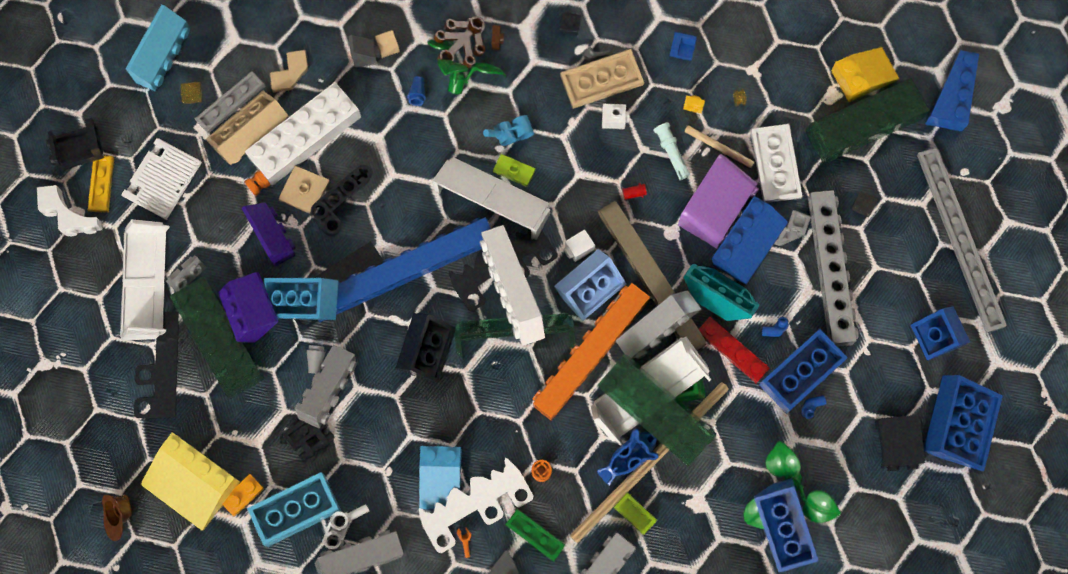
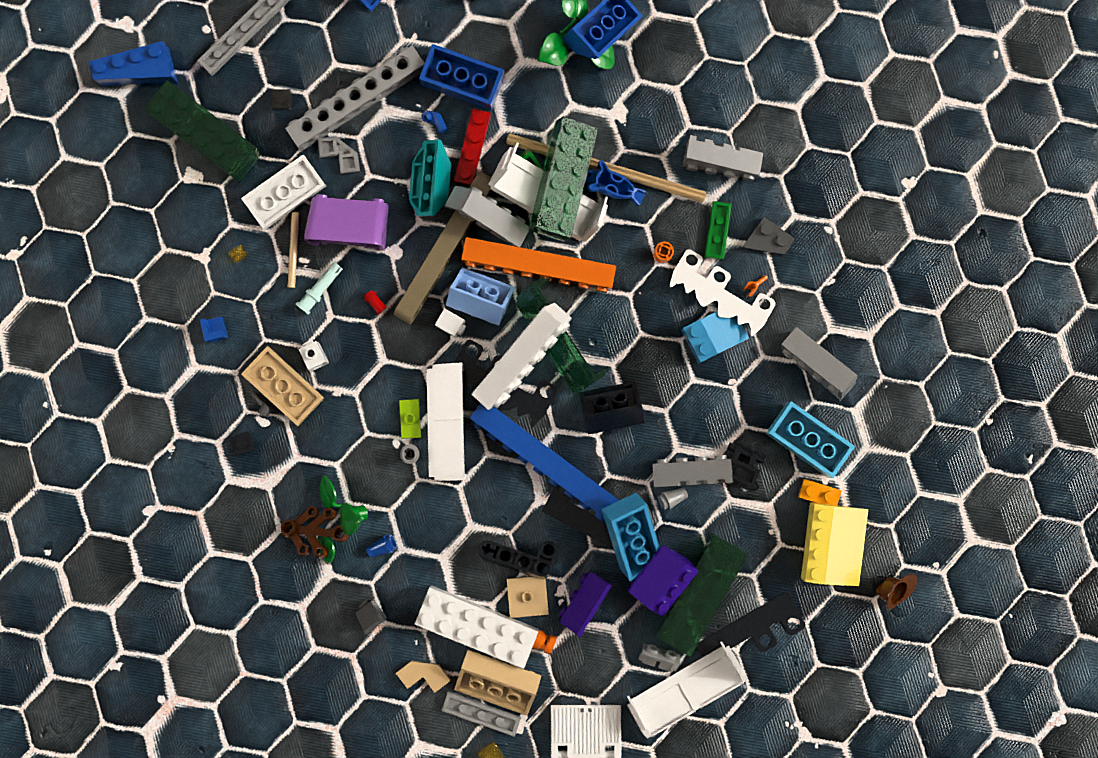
camera: 120 degrees left, 10 degrees up
(340, 532) = (805, 392): white beam -> none
(387, 43) = (350, 599): tan slope -> none
(482, 151) = (405, 451): none -> light grey cone
(497, 37) = (292, 501): reddish brown plate -> none
(510, 133) = (377, 441): dark azure beam -> none
(635, 513) = (656, 157): lime plate -> none
(694, 104) = (264, 291): yellow plate -> none
(749, 241) = (368, 178): blue slope -> none
(811, 404) = (492, 59): blue arm -> none
(864, 73) = (157, 156): yellow slope -> none

